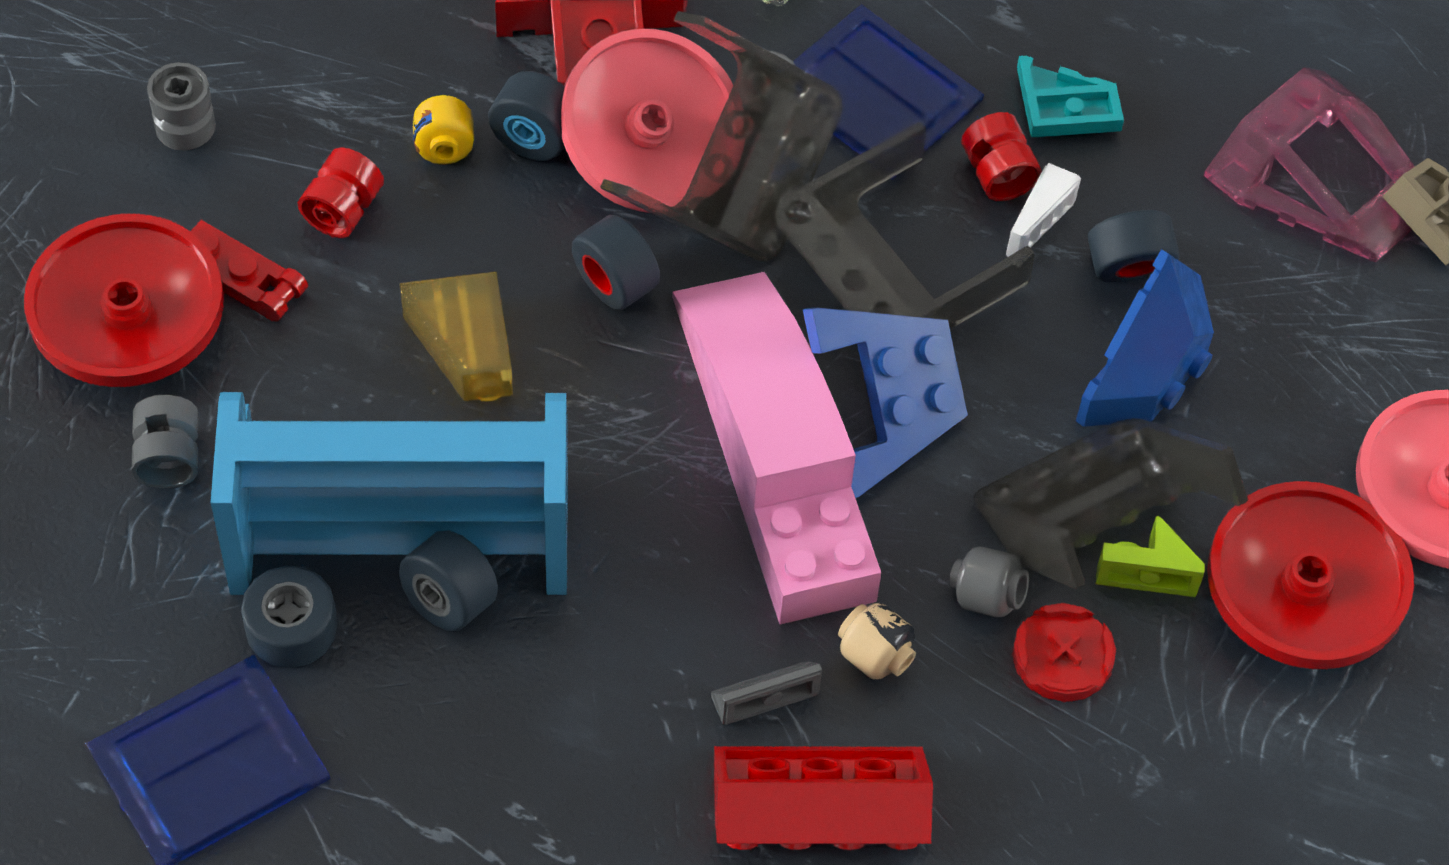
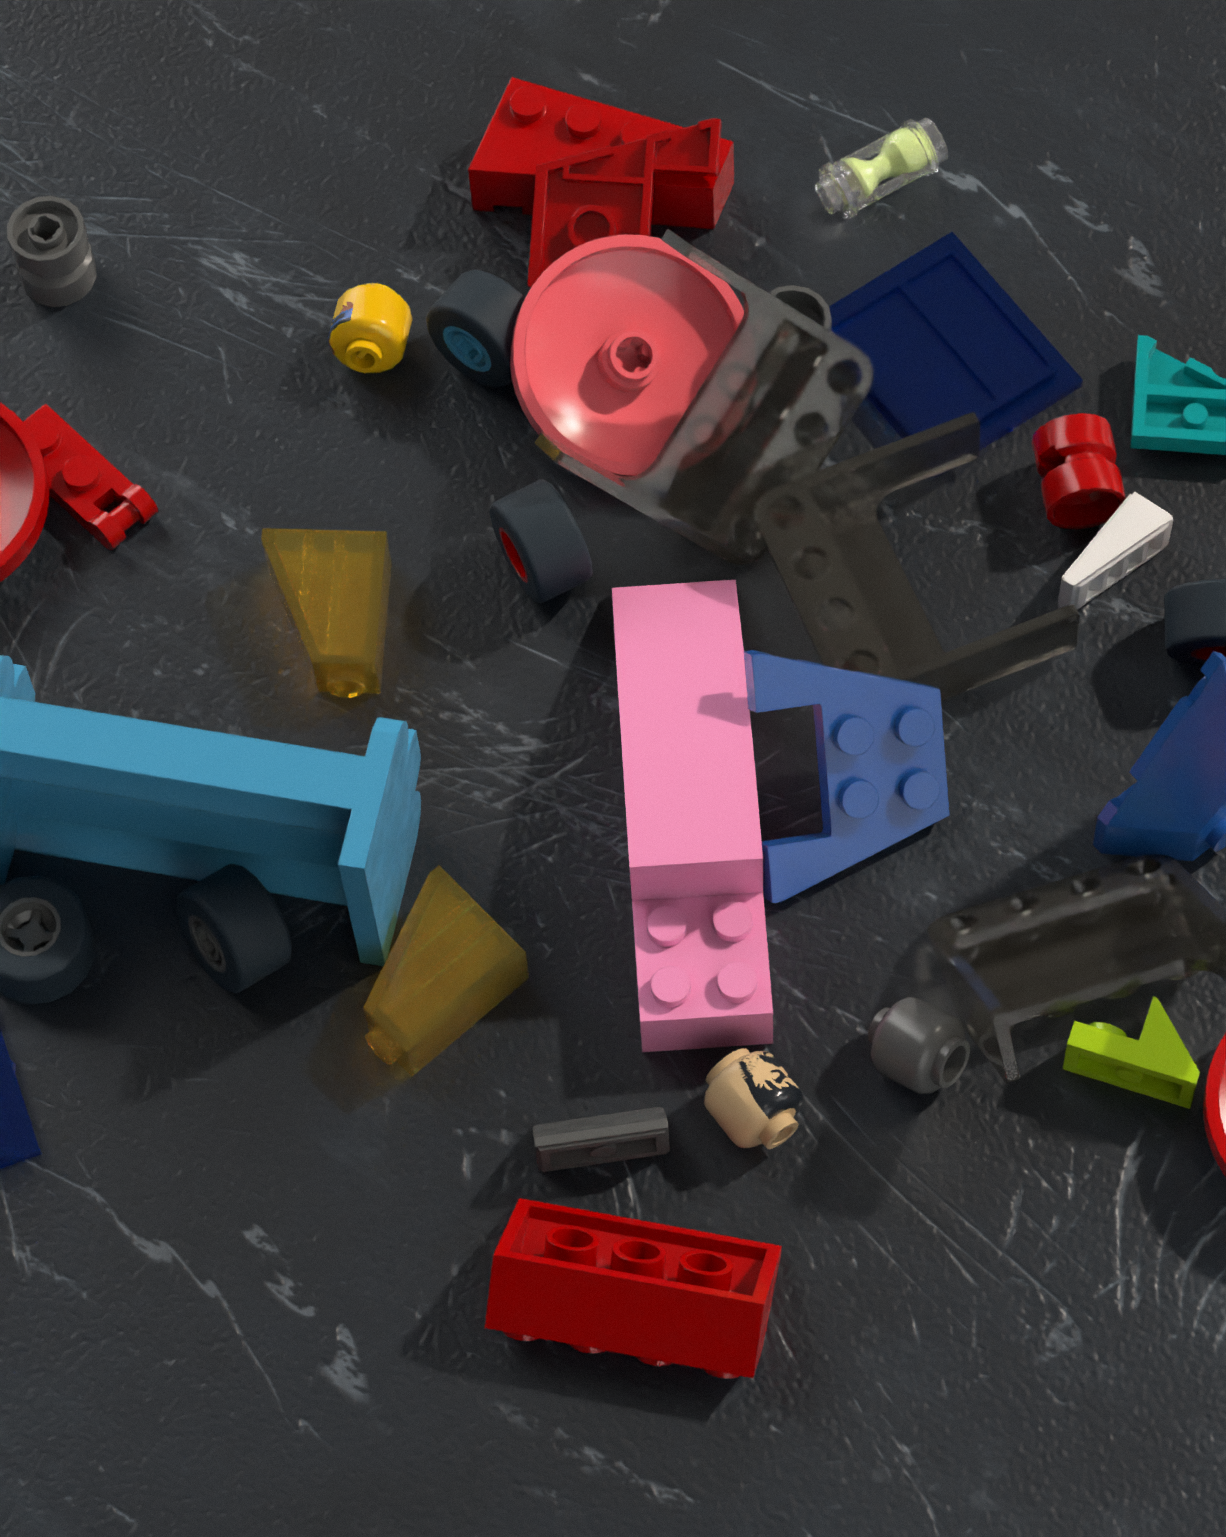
camera: 20 degrees right, 5 degrees up
(340, 192) = (229, 386): red wheel -> none
(616, 590) = (440, 975): none -> clear yellow slope
(1064, 652) = (995, 1154): red tile -> none

